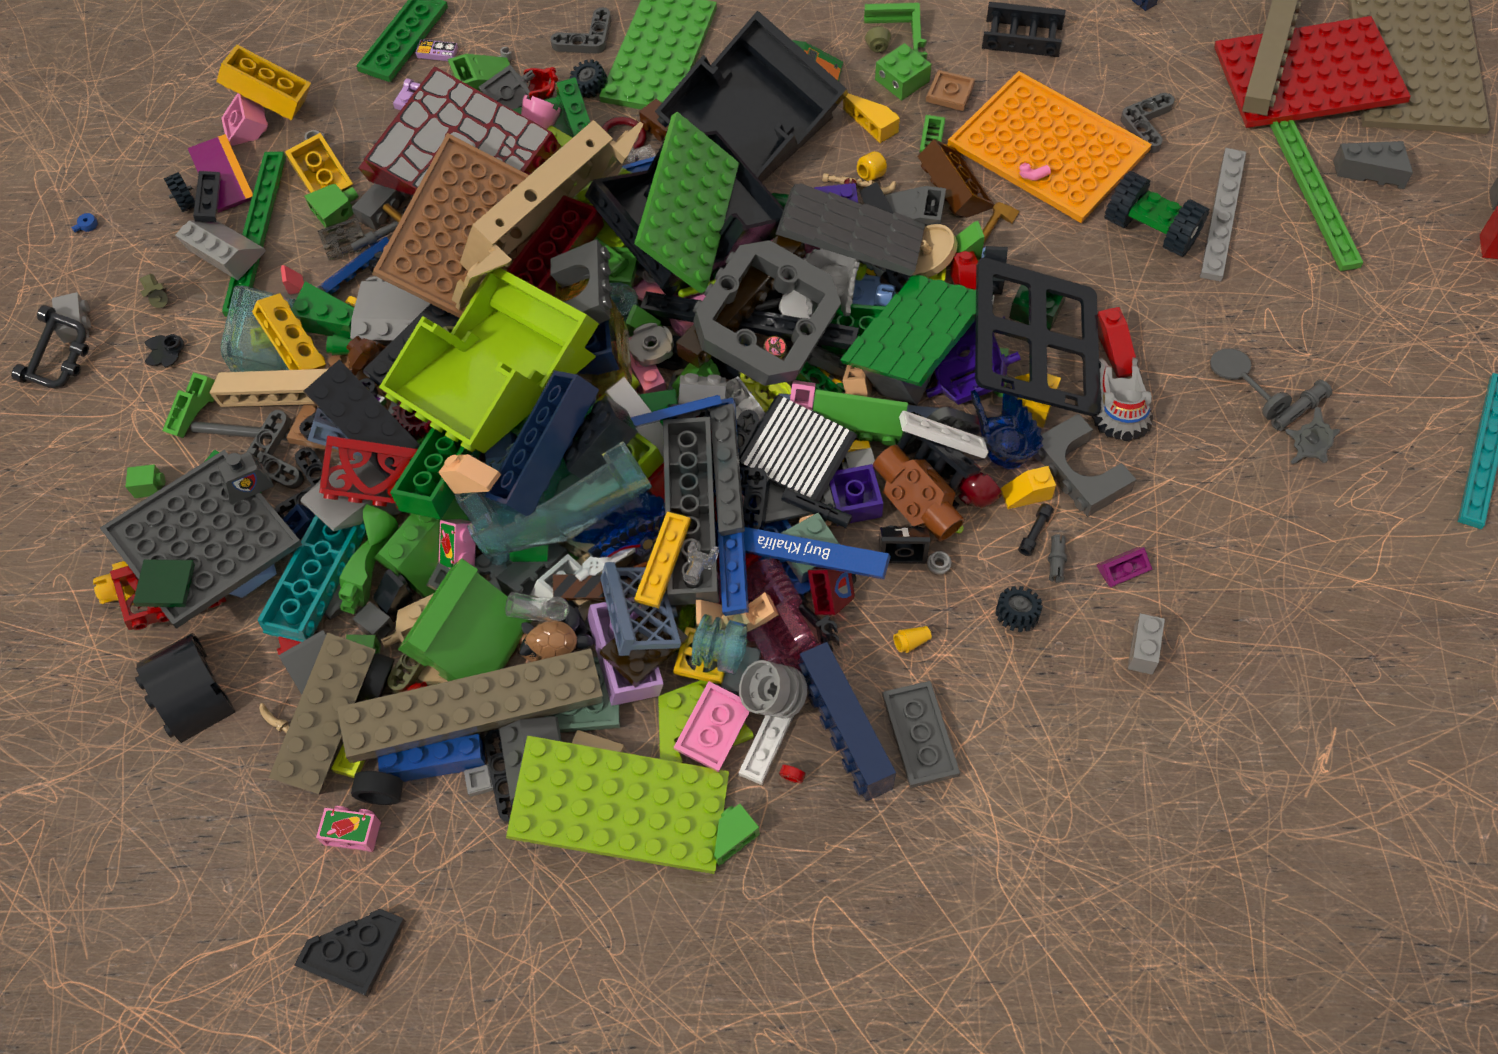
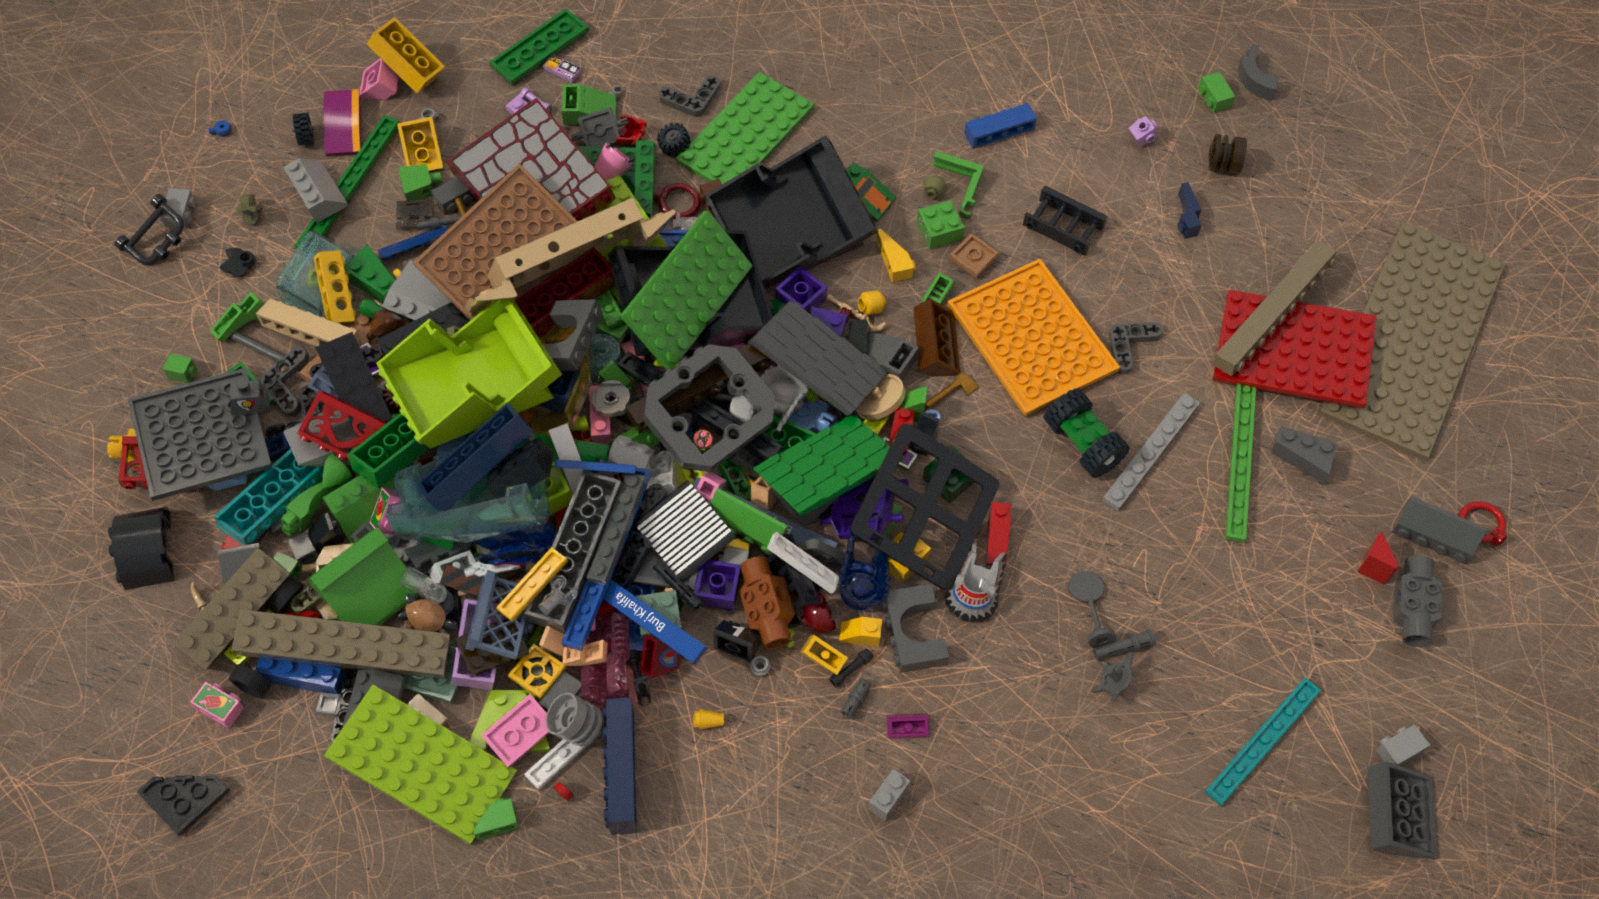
camera: 15 degrees right, 0 degrees up
(164, 583) = (156, 462): dark green tile -> none
(207, 196) = (321, 141): black plate -> none
(292, 280) = (359, 236): coral slope -> none
(468, 474) = (410, 462): light nougat slope -> none
(724, 645) = (547, 668): clear light blue wheel -> none
(795, 170) = (802, 289): none -> dark purple brick
(920, 734) = (676, 798): dark grey plate -> none
(1002, 525) = (823, 654): none -> yellow slope
(1018, 608) = (802, 727): black wheel -> none
(1032, 174) = (1002, 359): bright pink arm -> none

